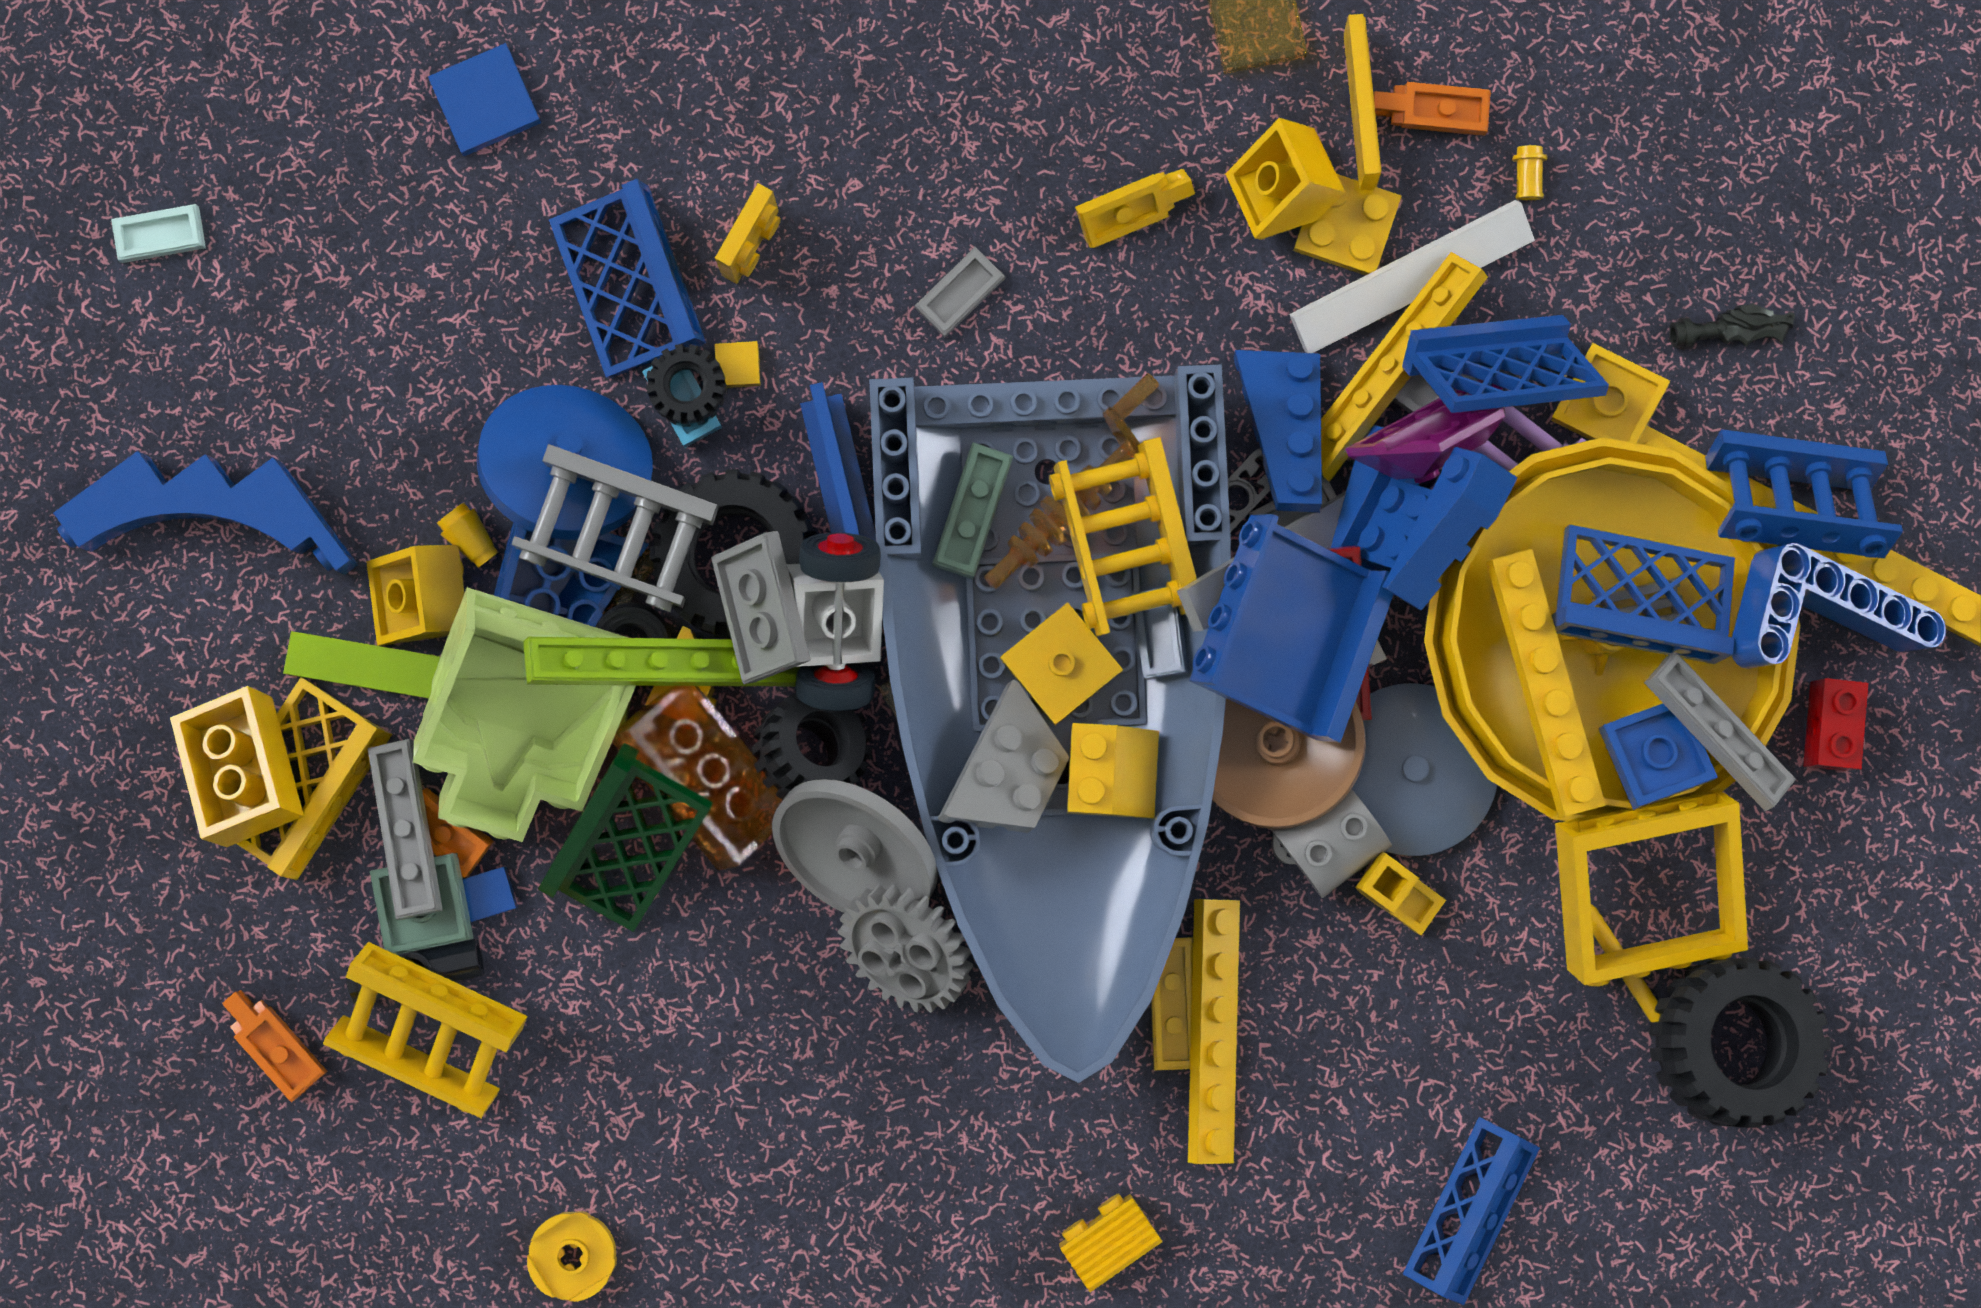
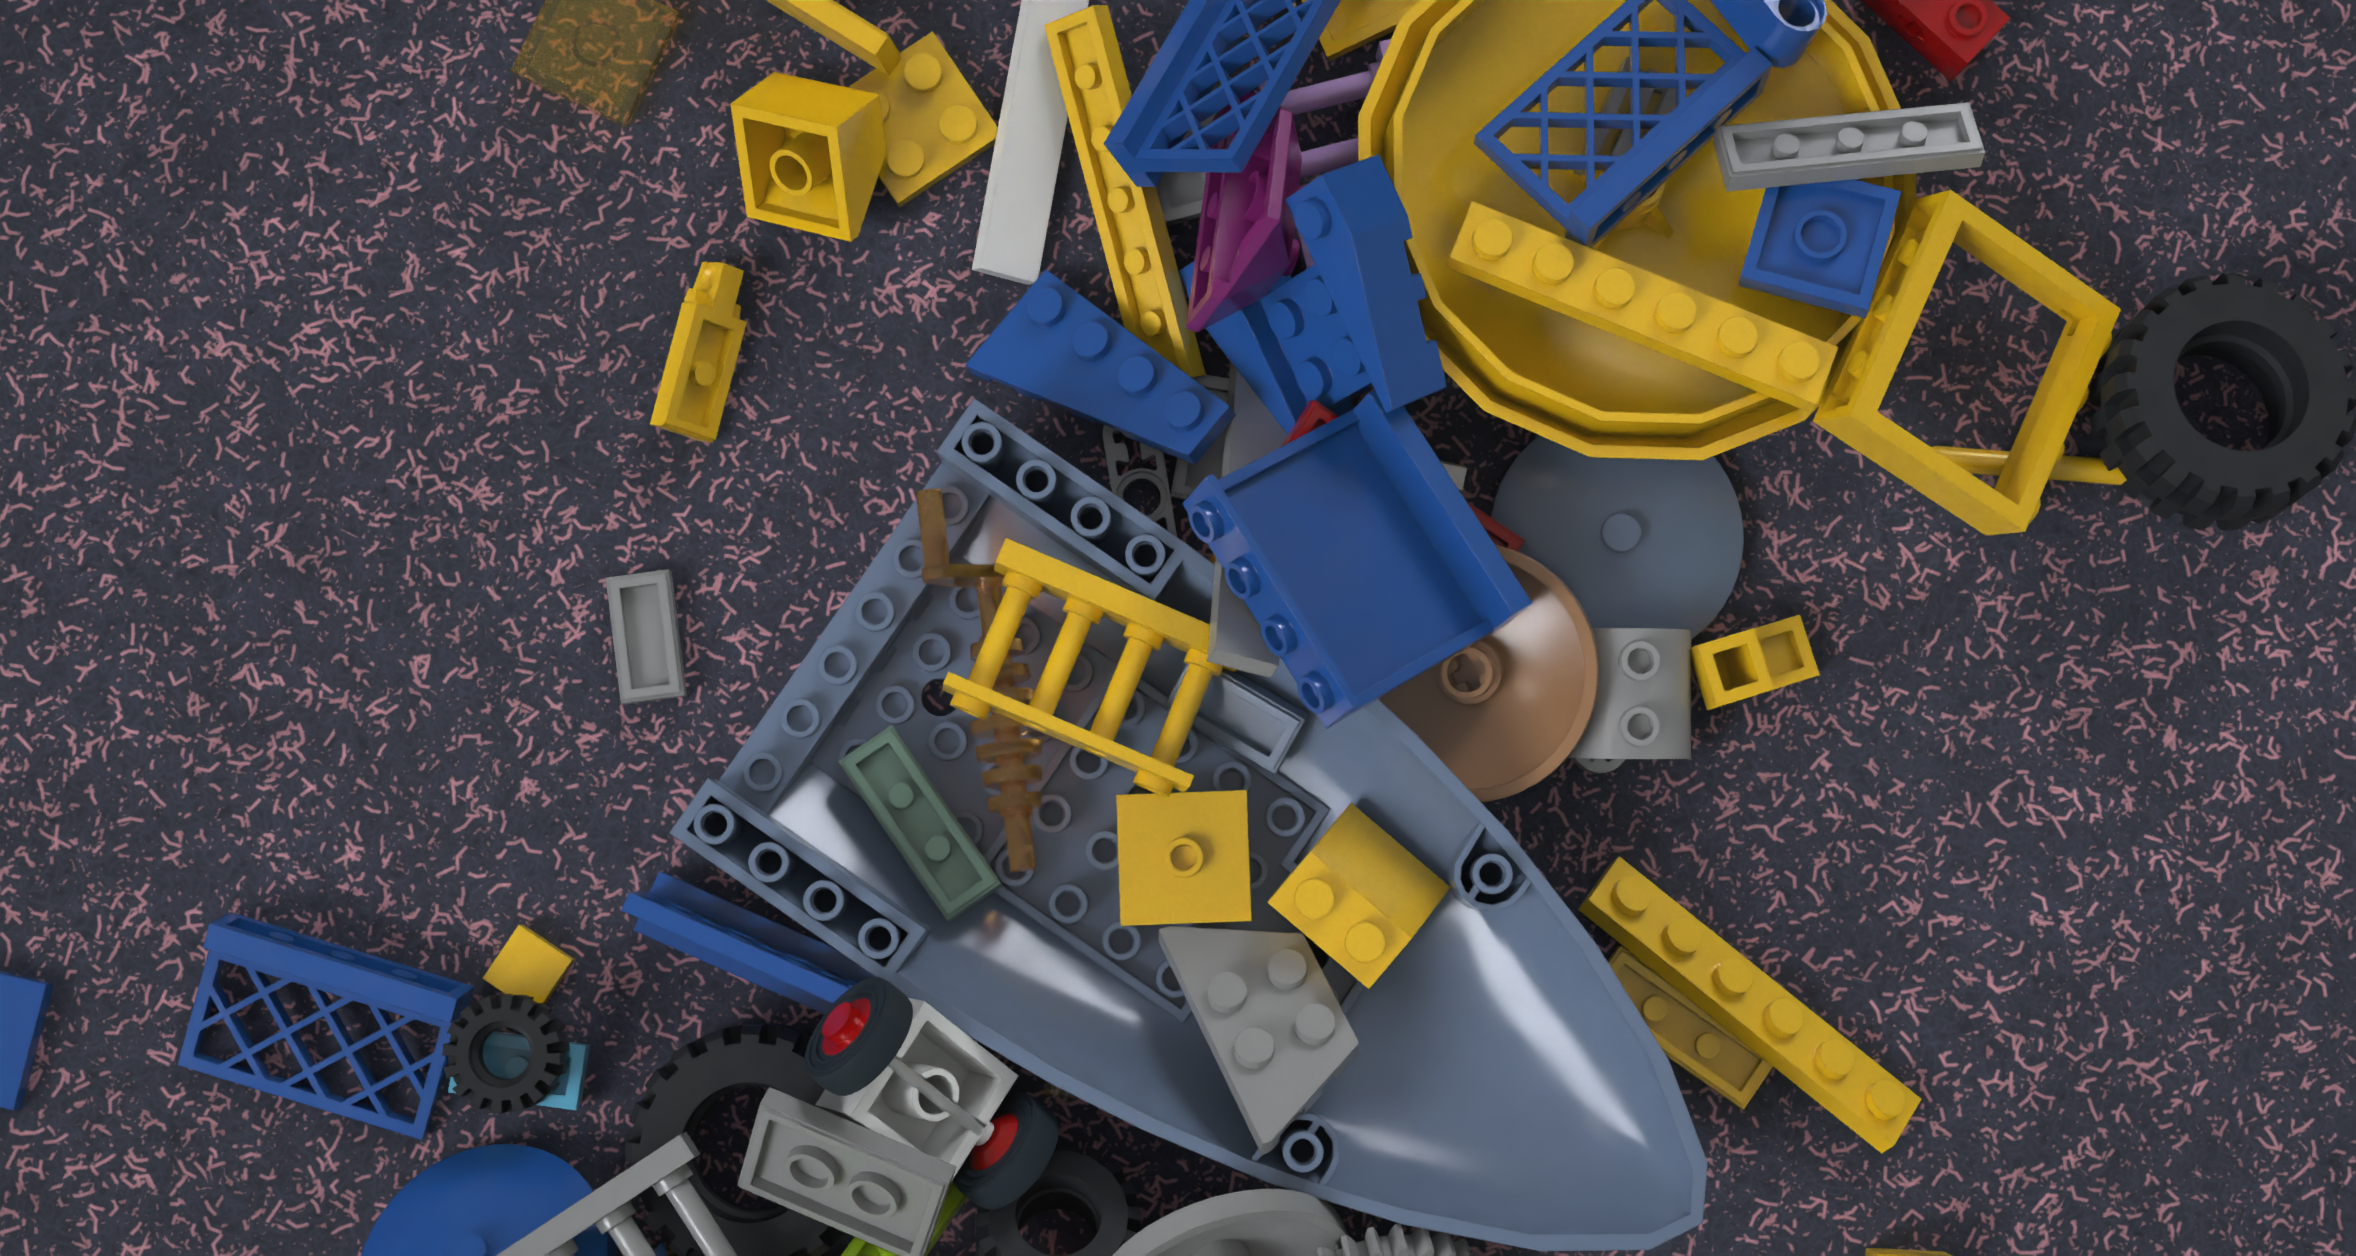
camera: 50 degrees left, 0 degrees up
(753, 224) = (373, 823): yellow plate -> none
(1485, 1214) = (2204, 857): blue fence -> none

